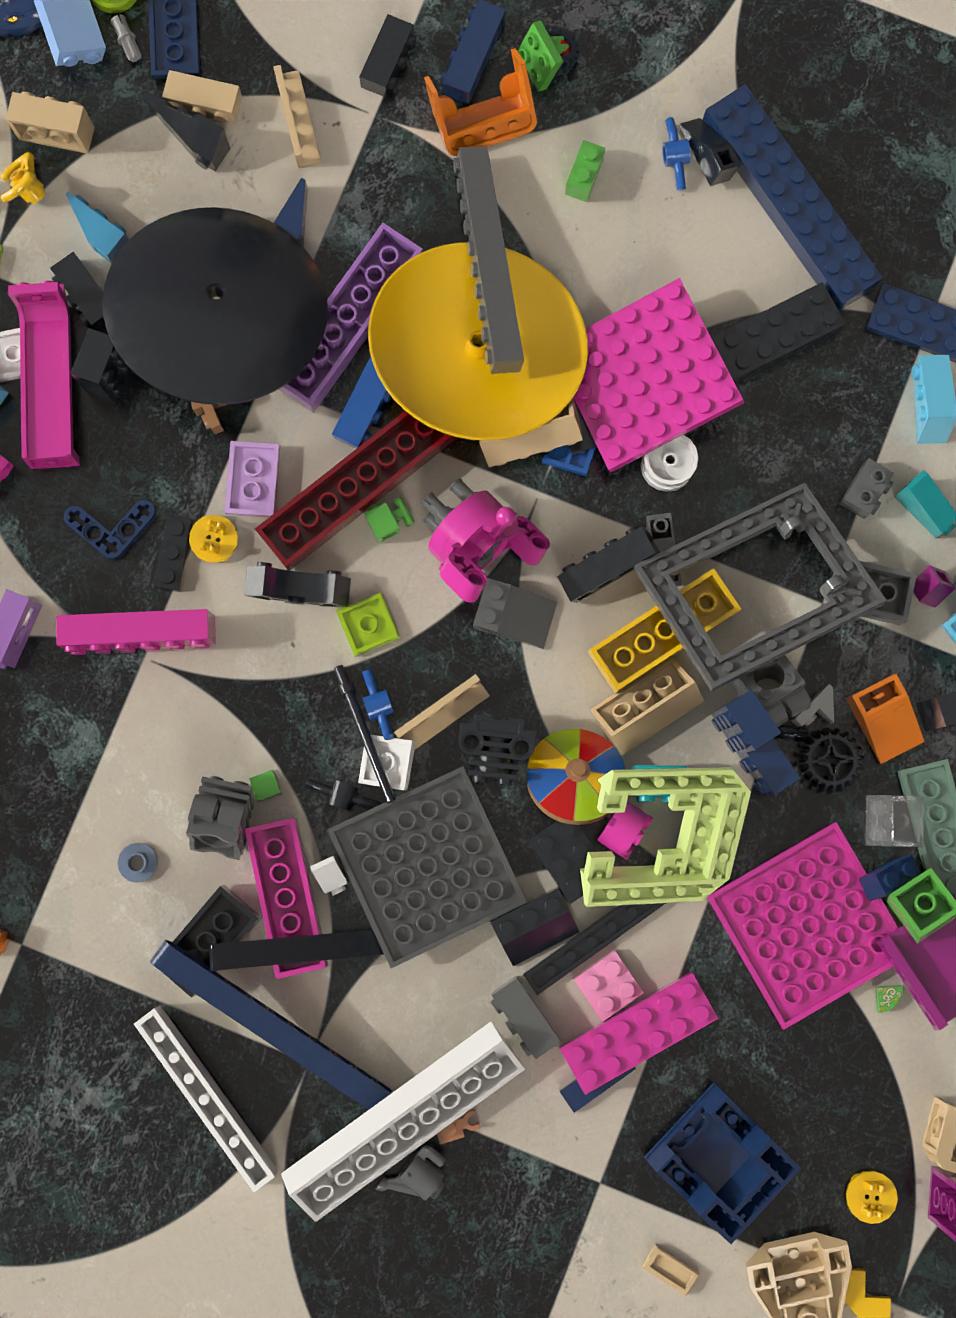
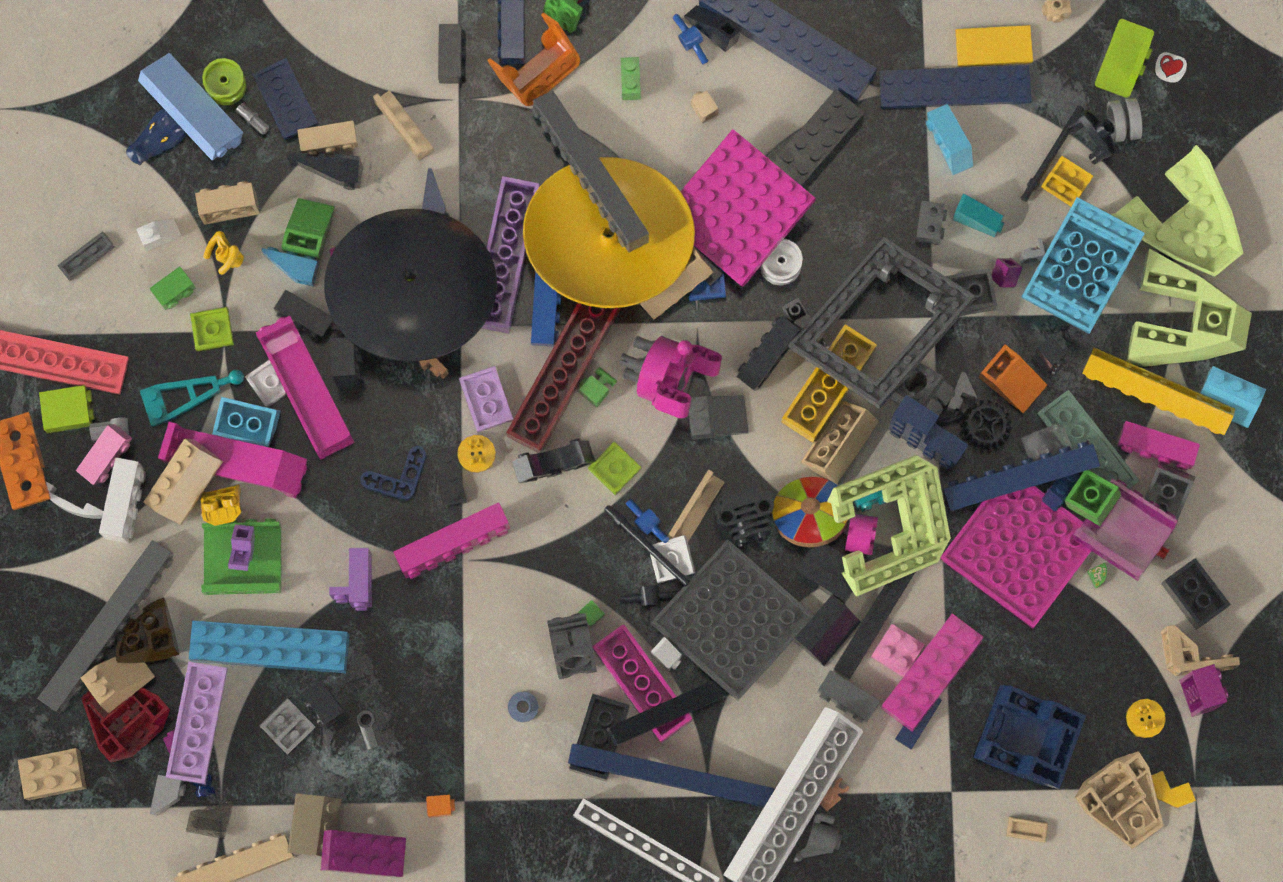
camera: 20 degrees left, 5 degrees down
(132, 192) = (308, 228): none -> bright green slope
(657, 239) = (704, 106): none -> tan brick
(850, 843) = (1021, 476): none -> dark blue brick

